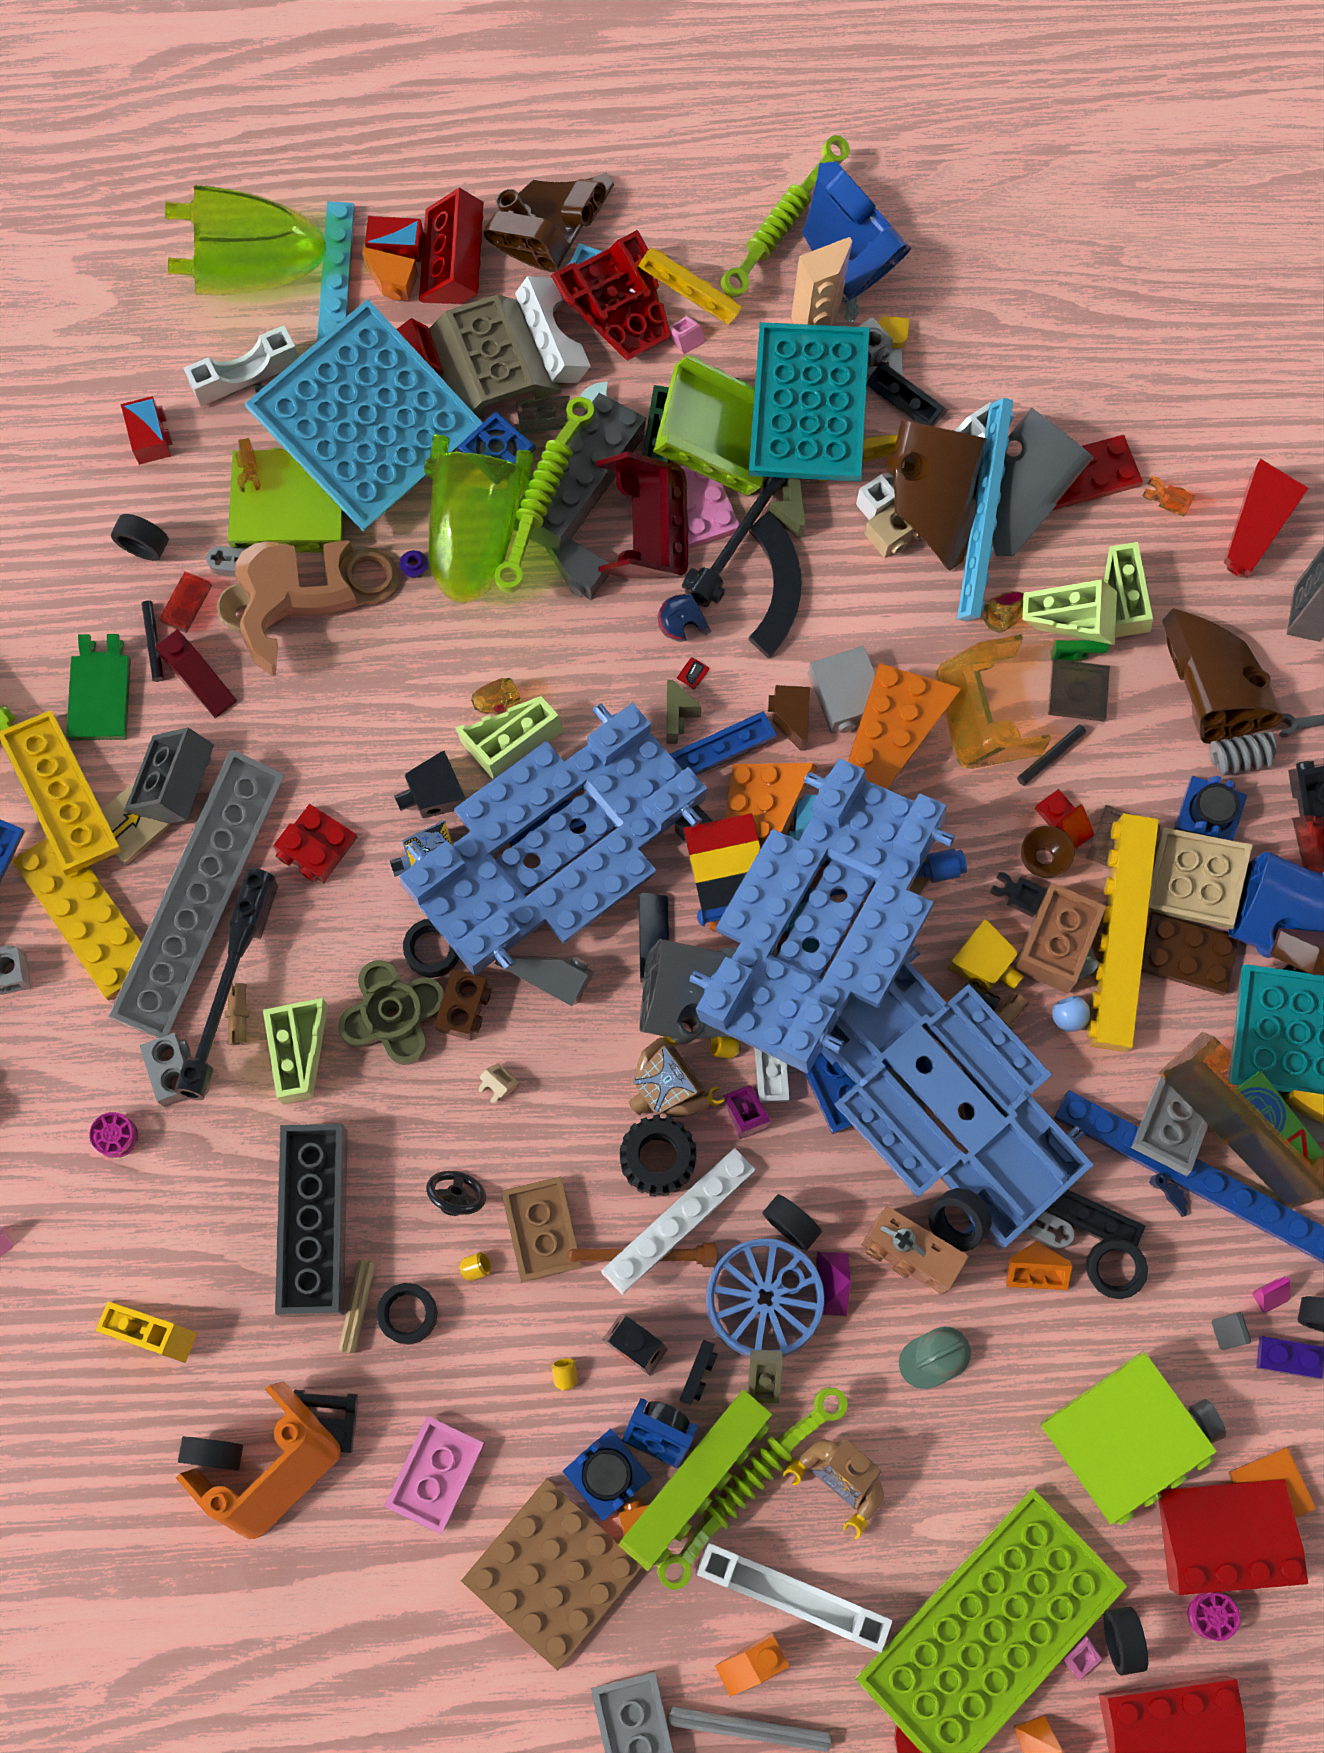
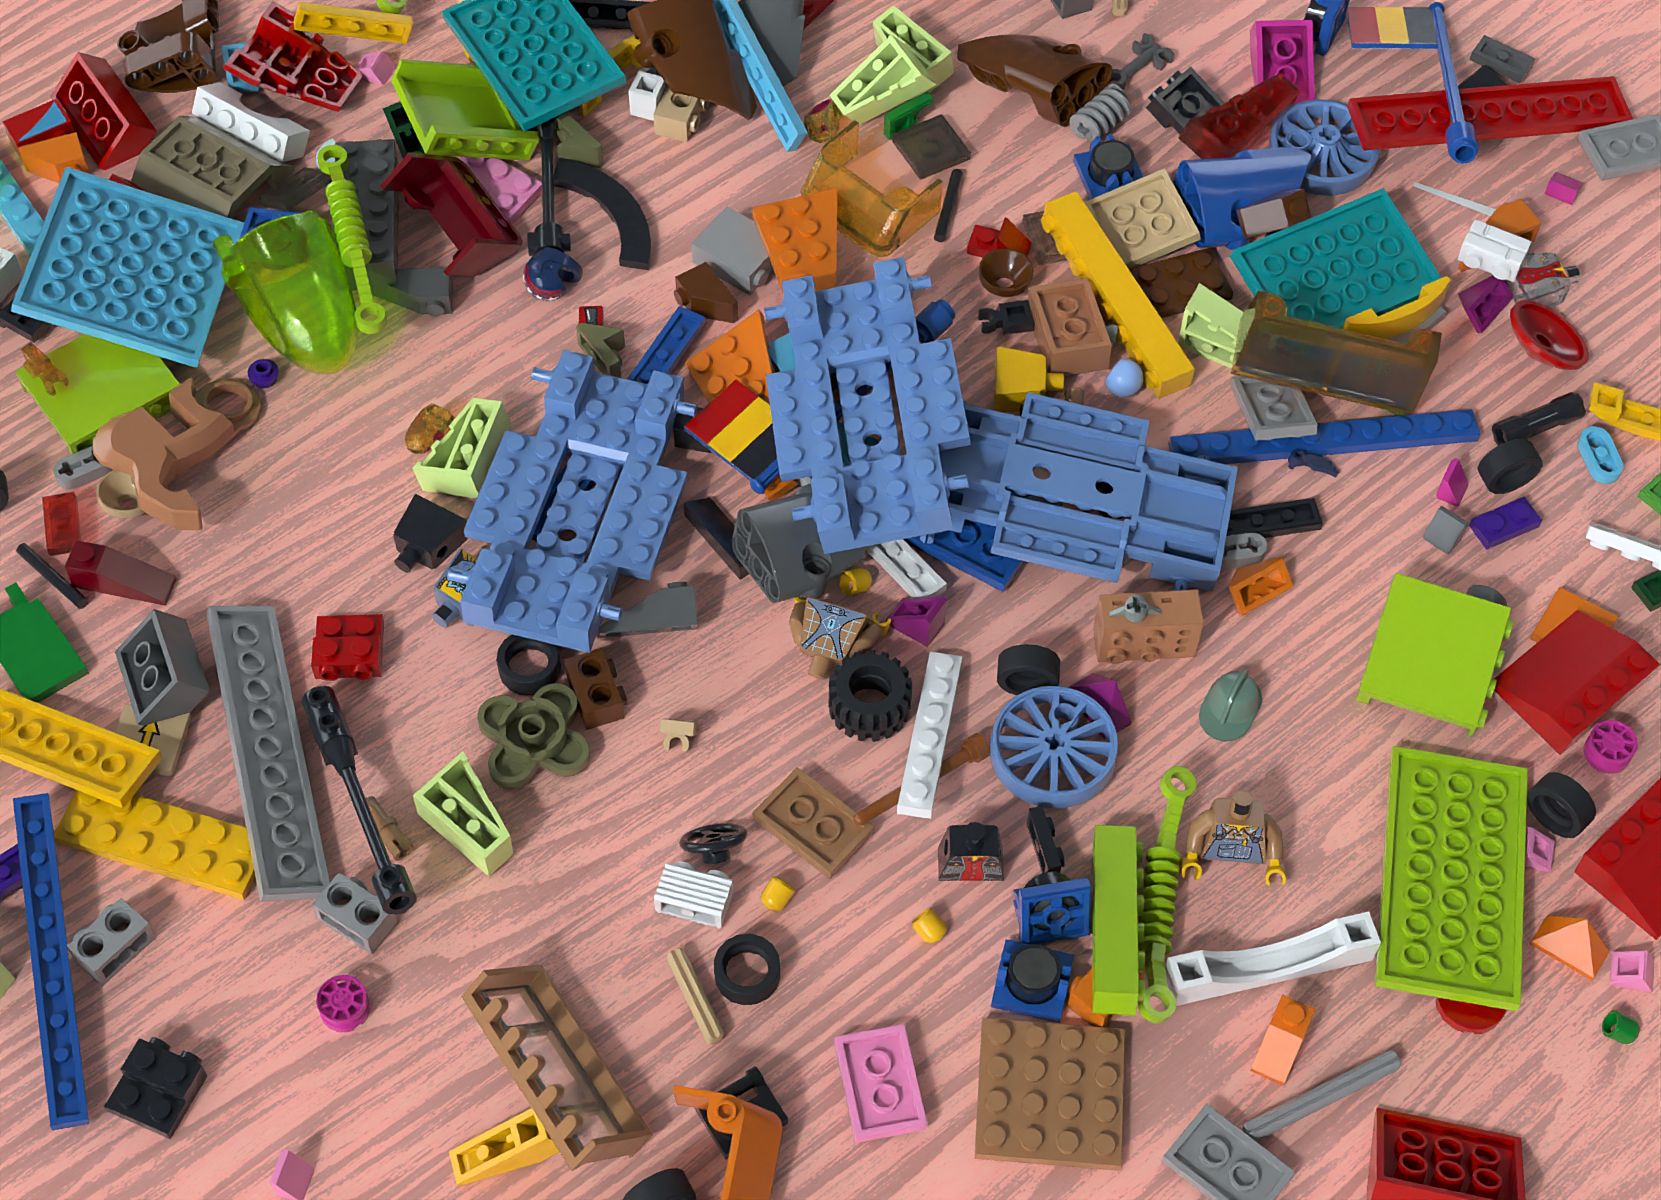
camera: 35 degrees left, 15 degrees down
(213, 1298) = (556, 1065): none -> medium nougat window
(311, 1220) = (598, 946): dark grey brick -> none
(412, 1226) = (694, 894): none -> white brick
(765, 1375) = (1104, 798): dark tan plate -> none
(973, 1205) = (1166, 548): black tyre -> none
(1131, 1287) = (1332, 521): black tyre -> none
(1178, 1017) = (1210, 326): none -> yellowish green wedge

